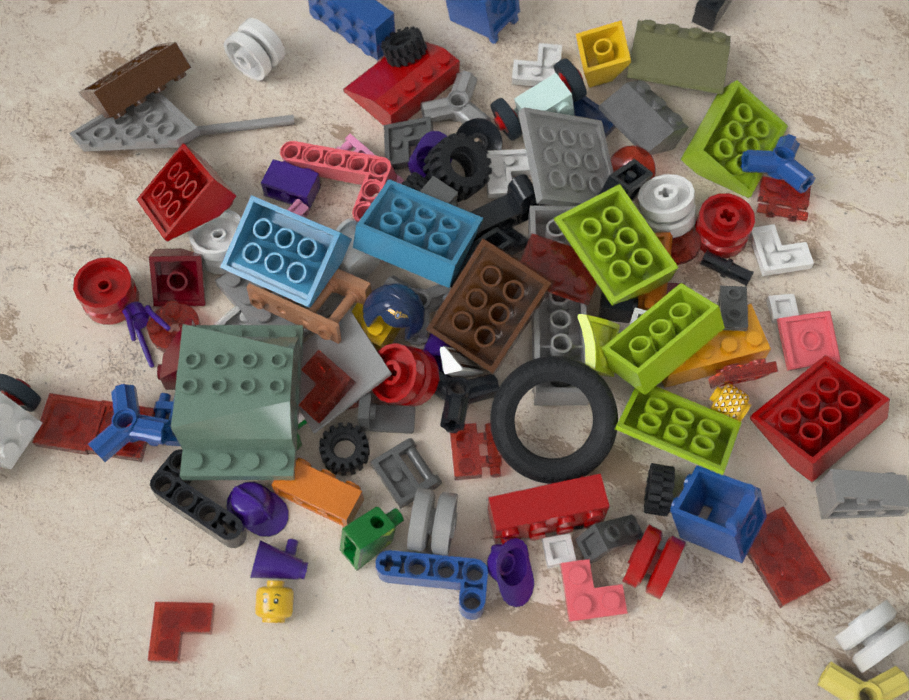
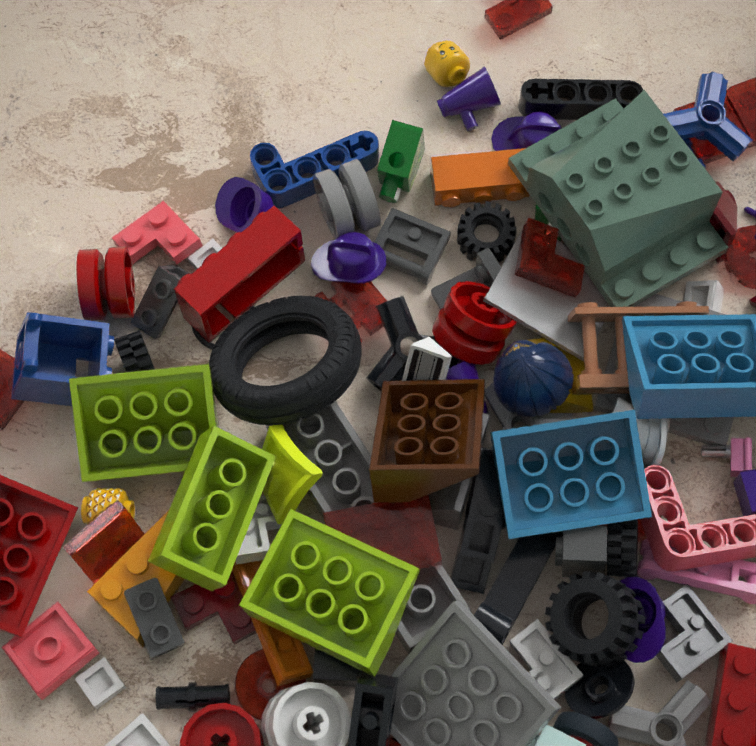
camera: 150 degrees right, 5 degrees up
(458, 476) = (349, 259): none -> dark purple piece

